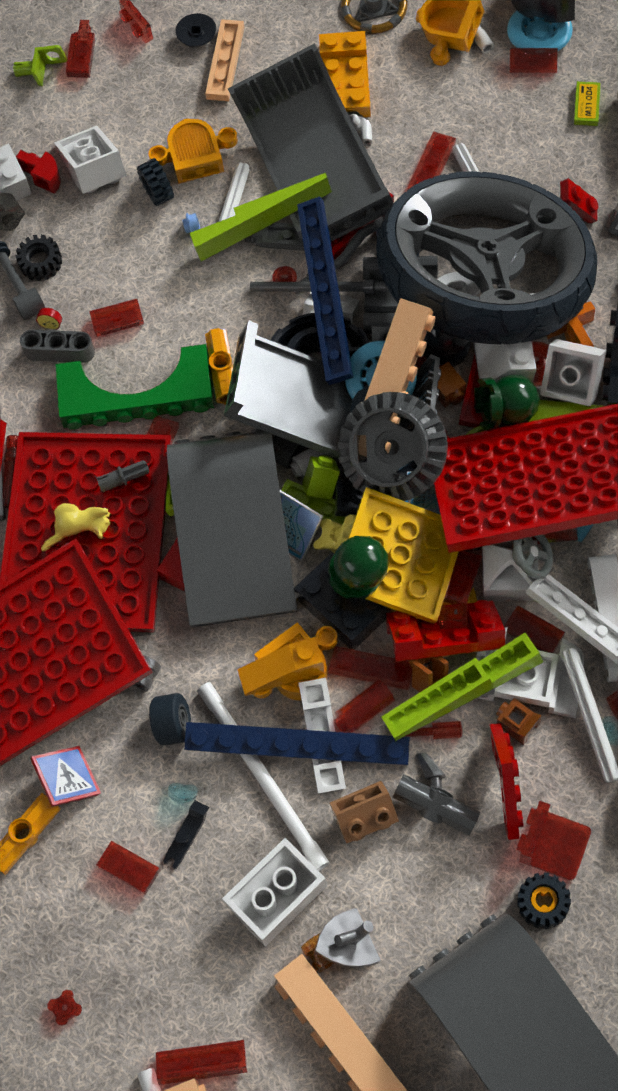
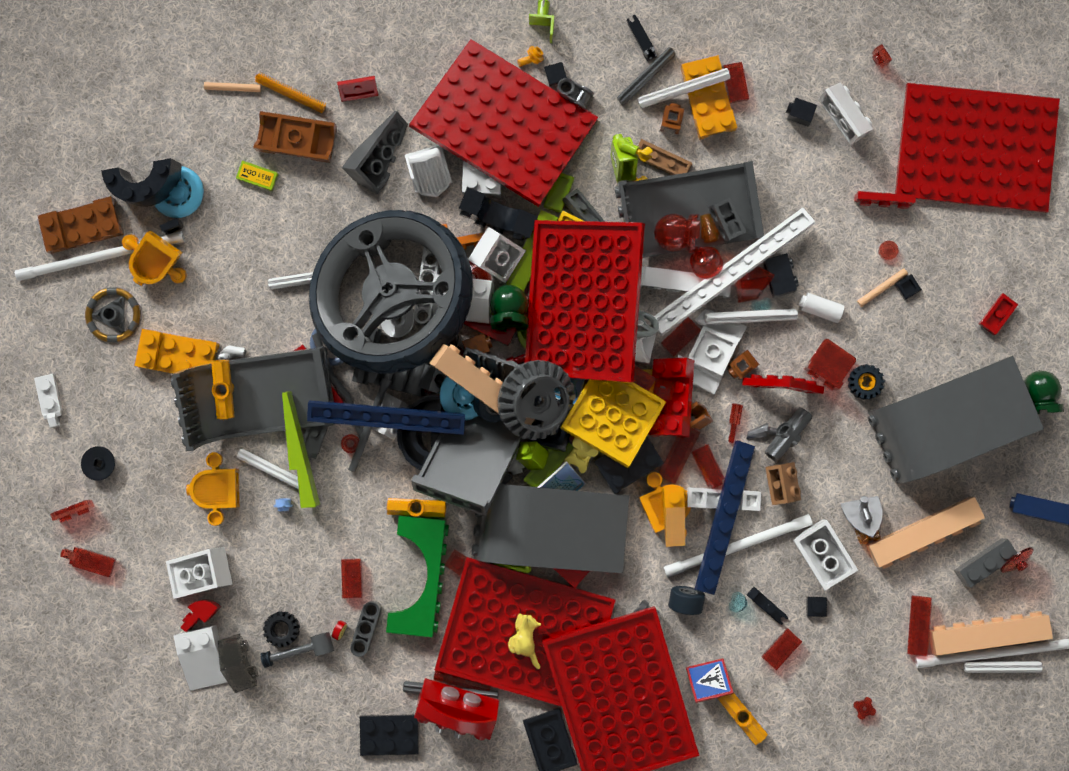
camera: 75 degrees left, 20 degrees up
(37, 65) = (95, 600): lime bracket -> none
(122, 476) = (494, 598): dark grey axle -> none
(155, 182) = (241, 525): black bush -> none
(199, 905) = (816, 606): none -> black plate
(224, 60) = (133, 446): light nougat plate -> none
(314, 119) = (222, 376): none -> light orange piece
(358, 567) = (626, 447): dark green tile -> none
(434, 158) = (279, 308): clear red plate -> none
(463, 686) = (715, 396): lime slope -> none
(496, 32) = (171, 226): none -> black tile
(533, 60) = (206, 205): clear red plate -> none
(579, 200) = (350, 208): red plate -> none

